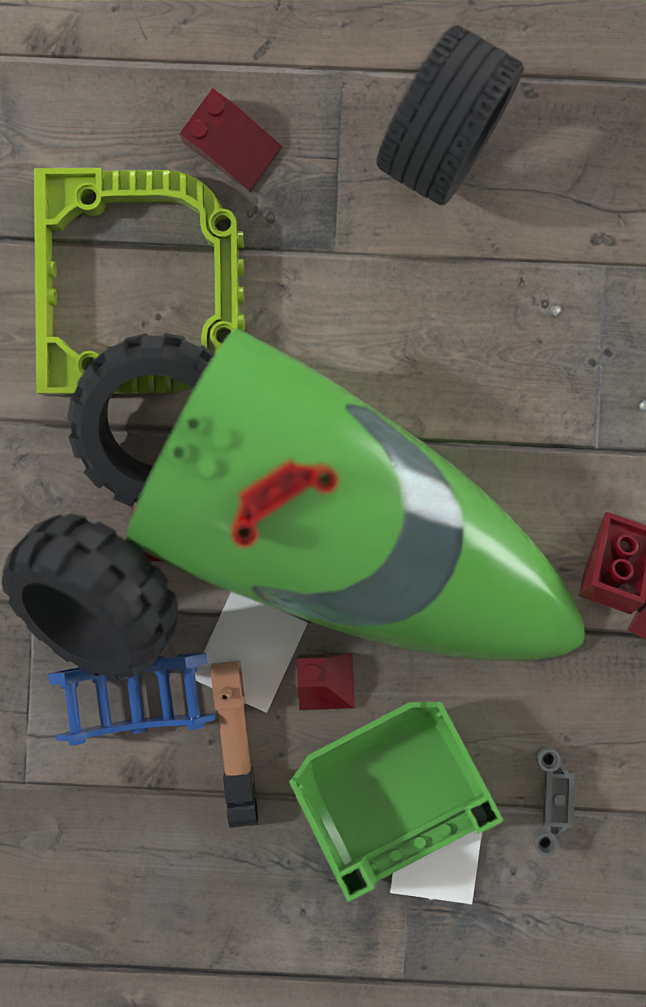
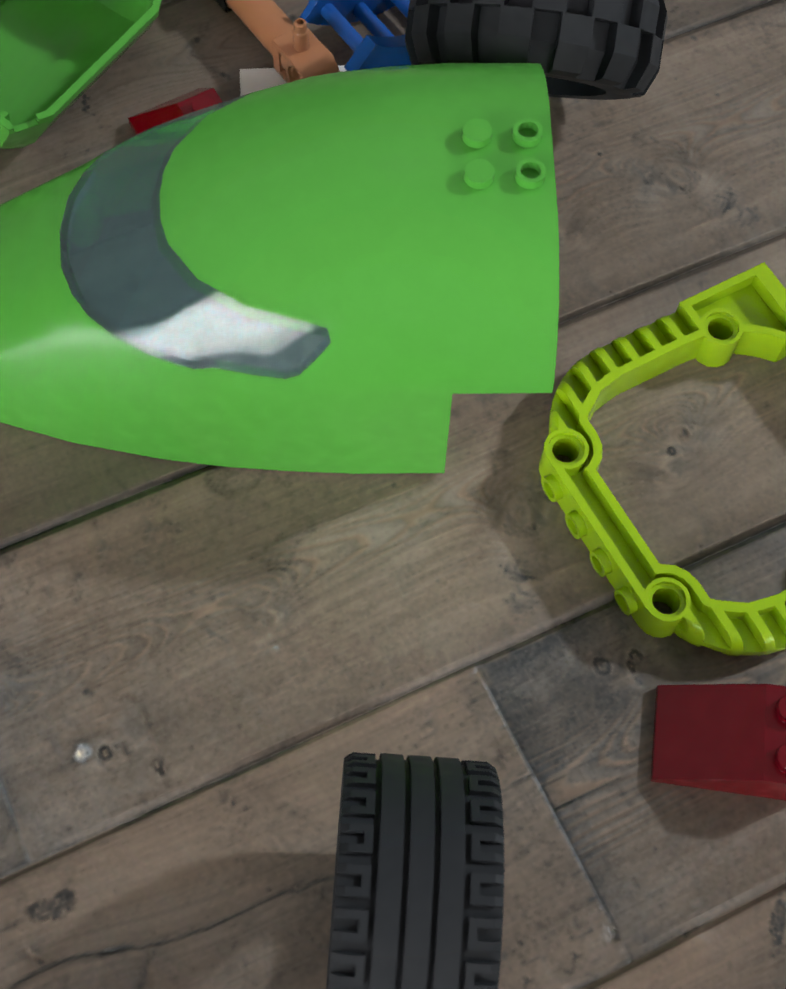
camera: 155 degrees right, 25 degrees down
(88, 407) = (656, 324): black tyre -> none
(274, 491) = (361, 141): red plate -> none

